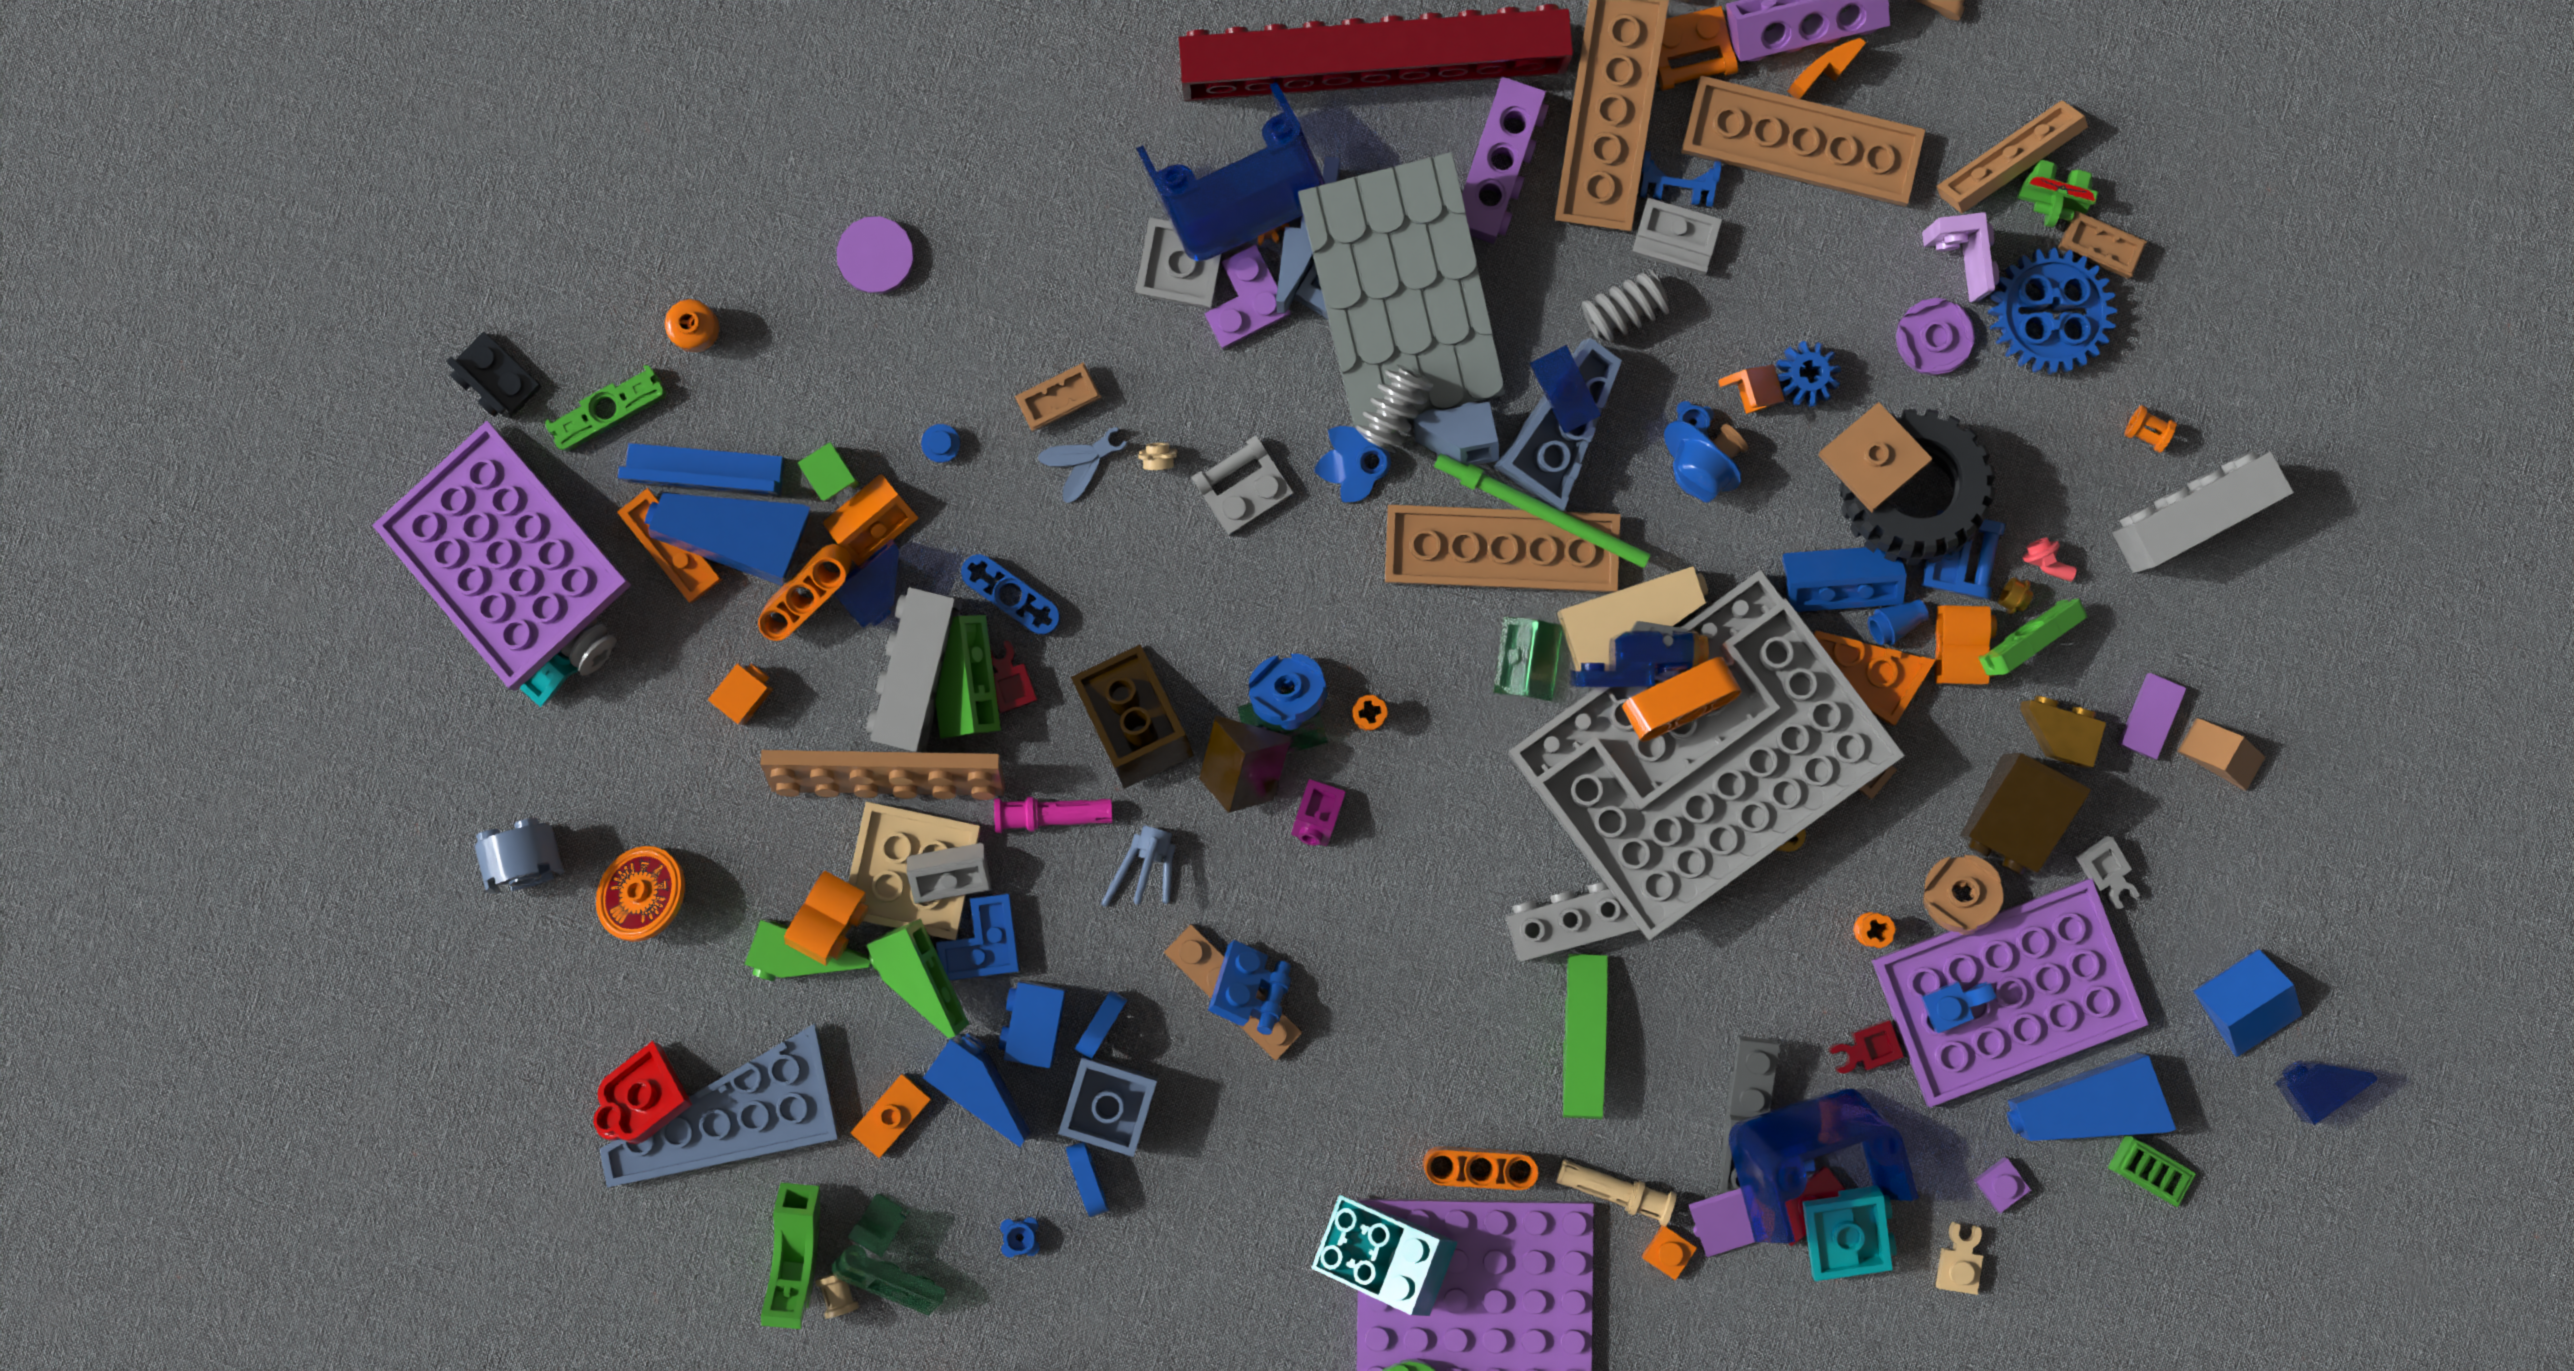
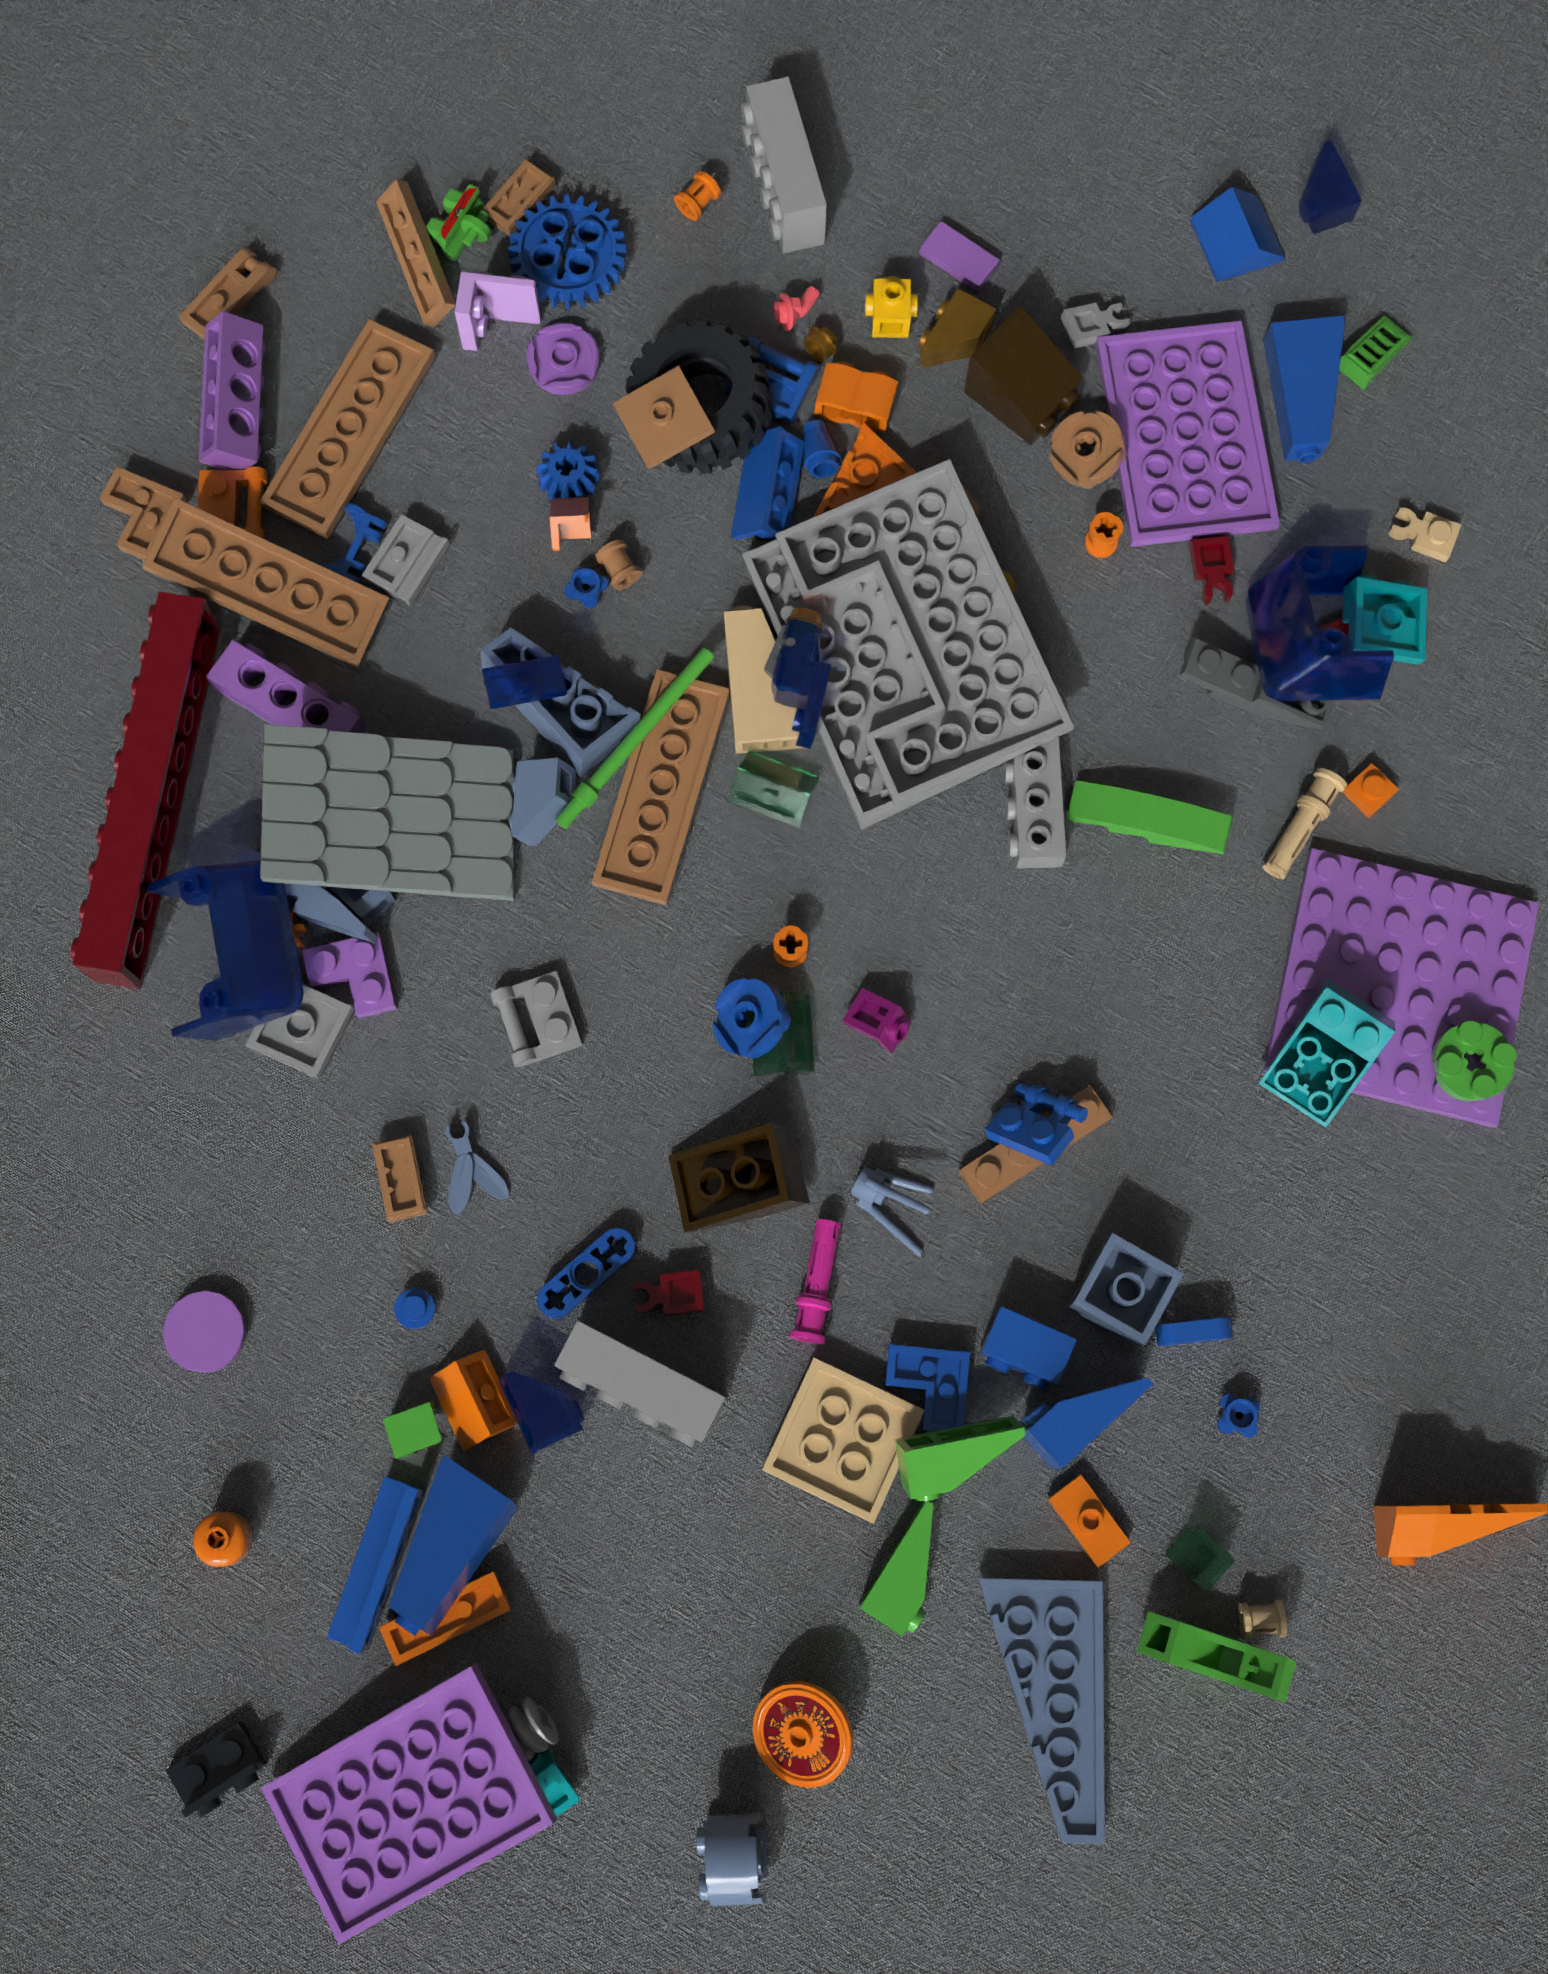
camera: 75 degrees left, 10 degrees down
(629, 398) = (293, 1682): bright green piece -> none
(639, 1097) = (1017, 1785): red plate -> none
(741, 693) = (618, 1575): orange brick -> none
(796, 607) = (547, 1491): orange beam -> none
(825, 919) = (874, 1536): orange brick -> none
(883, 773) = (737, 1442): medium nougat plate -> none
(887, 1281) = (1260, 1560): clear green plate -> none
(948, 873) = (854, 1399): light grey slope -> none
(966, 685) = (671, 1336): bright green slope -> none
(1101, 1024) = (1041, 1279): blue beam -> none
(1158, 456) = (486, 1093): tan plate -> none
(1243, 763) = (811, 1078): dark brown slope -> none
(1346, 463) = (542, 913): blue plate -> none
(1394, 407) = (499, 848): light grey piece -> none
(1497, 1177) = (1267, 929): orange beam -> none
(1625, 306) = (458, 618): light grey piece -> none
(1681, 699) = (849, 645): orange beam -> none
(1698, 463) = (627, 583): blue piece -> none
(1722, 1222) = (1352, 729): medium lavender piece -> none
(1830, 63) = (285, 389): orange slope -> none
(1951, 1005) = (1189, 481): blue plate -> none
(2002, 1185) = (1363, 481): medium lavender plate -> none
(2033, 637) = (864, 332): bright green piece -> none
(2059, 661) = (891, 307): none -> yellow brick
(2222, 753) = (1005, 206): medium nougat slope -> none

